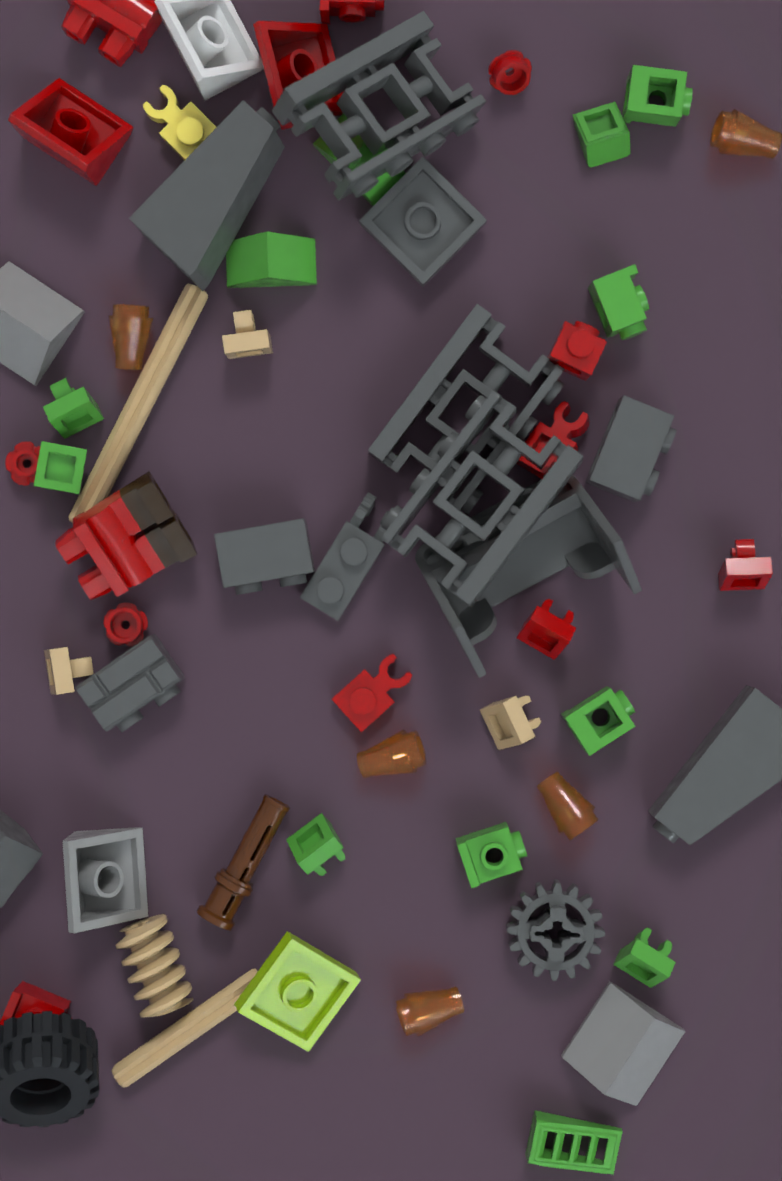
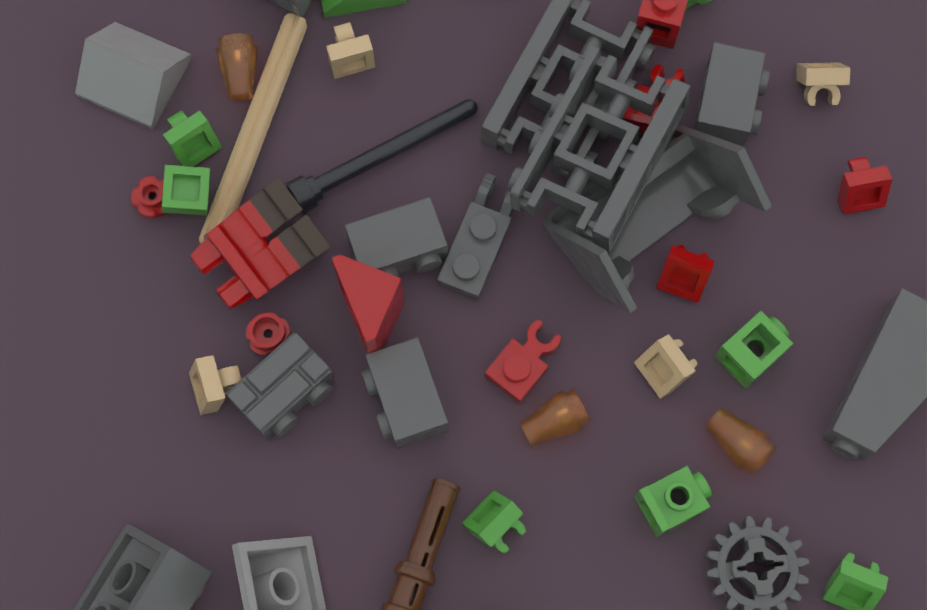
camera: 15 degrees left, 15 degrees down
(184, 482) = (310, 189): none -> black piece
(226, 621) = (372, 299): none -> red slope
(250, 710) = (406, 394): none -> dark grey brick
(731, 442) = (822, 75): none -> tan tile

